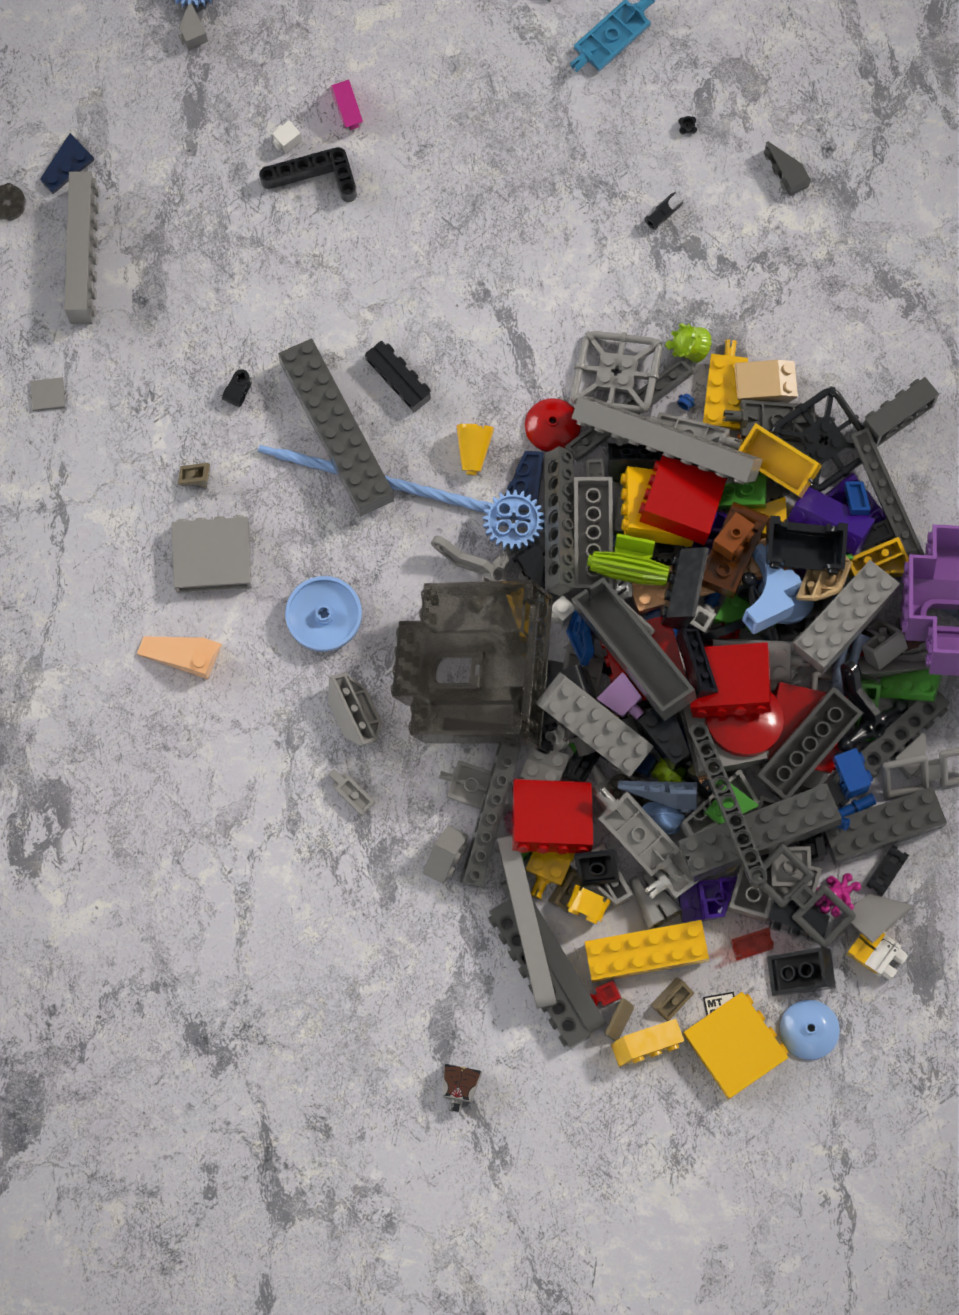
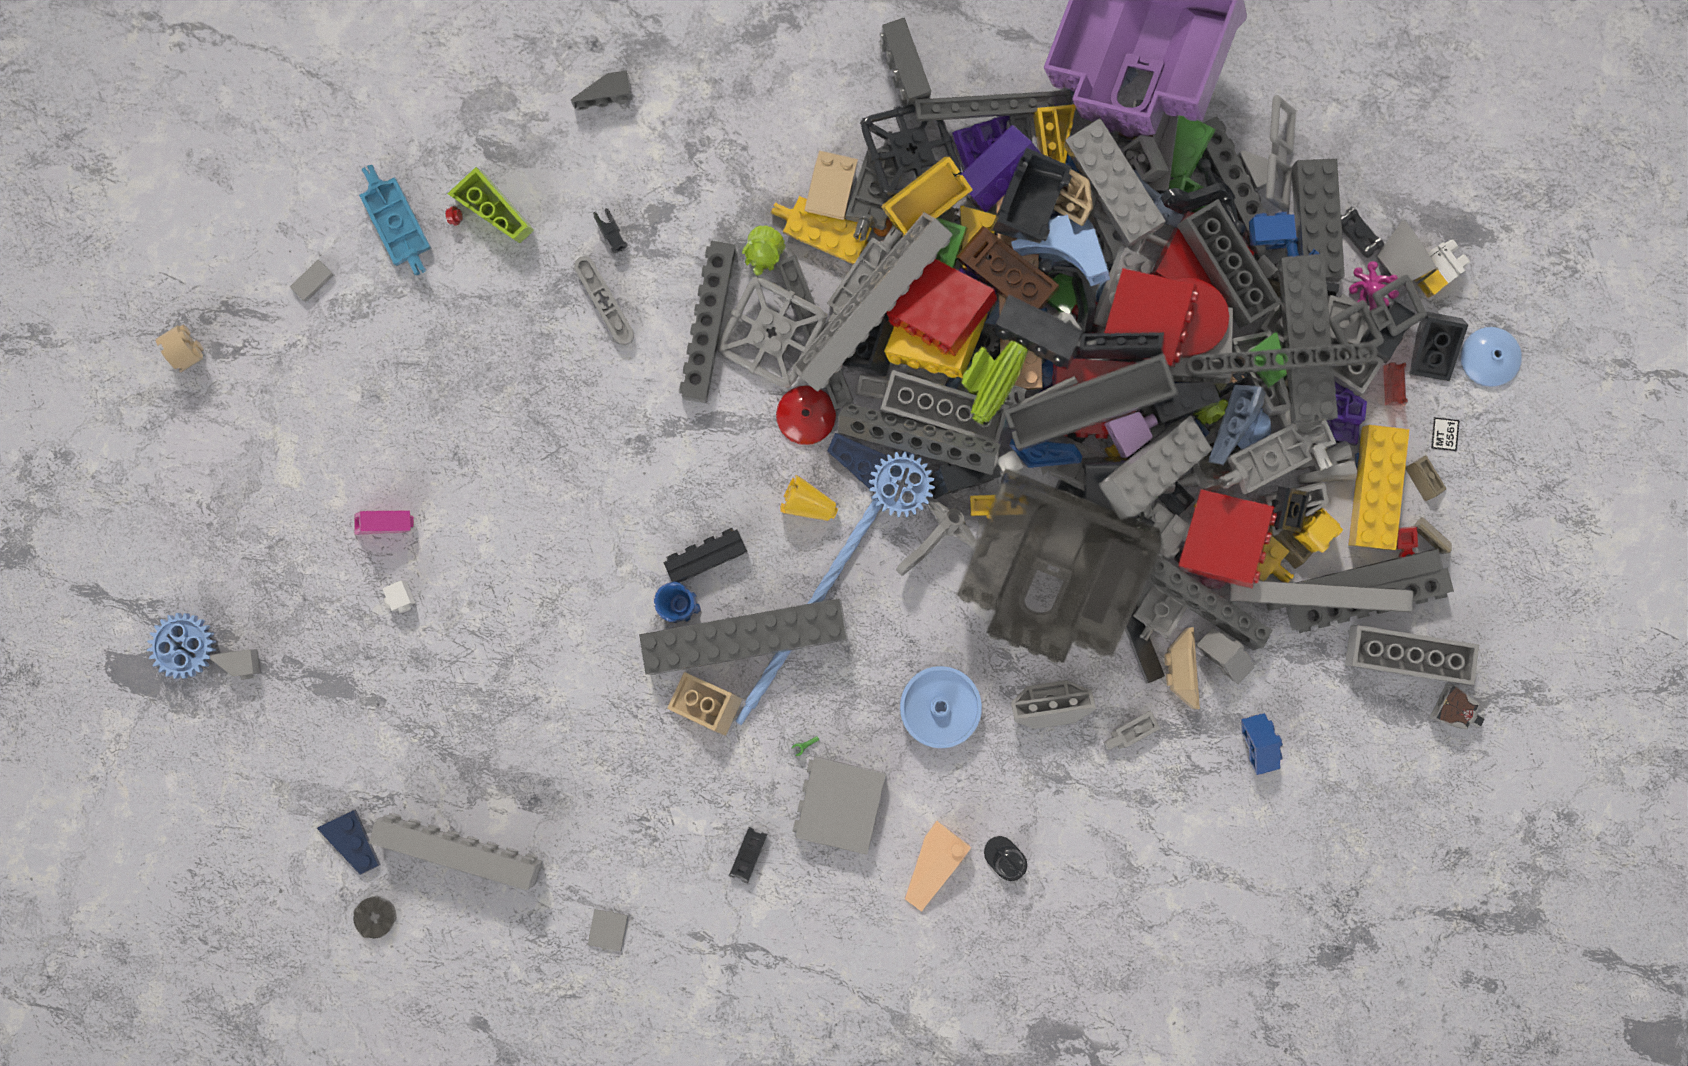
camera: 80 degrees left, 10 degrees up
(145, 490) = (748, 855): none -> black plate
(194, 475) = (748, 799): dark tan slope -> none
(204, 714) = (1005, 858): none -> black piece
(236, 390) = (670, 730): black piece -> none
(253, 508) = (803, 746): none -> bright green hand
(267, 414) = (704, 703): none -> tan slope
(313, 170) = (446, 578): black beam -> none
(349, 362) = (675, 602): none -> blue hair
(373, 909) = (1262, 743): none -> blue brick
(423, 820) = (1183, 668): none -> tan wedge
(429, 781) = (1143, 650): none -> black slope
(498, 1025) = (1412, 655): none -> light grey brick
(601, 323) = (725, 253): none -> dark grey brick
(611, 213) = (594, 284): none -> light grey piece
(633, 80) = (453, 215): none -> red plate
(647, 1043) = (1468, 513): yellow wedge -> none
(652, 106) = (488, 202): none -> lime wedge
(685, 401) = (824, 273): blue plate -> none
(687, 120) = (518, 172): black plate -> none
(734, 536) = (1001, 266): dark orange brick -> none
(736, 1044) = (1491, 430): yellow brick -> none
(857, 498) = (984, 135): blue tile -> none

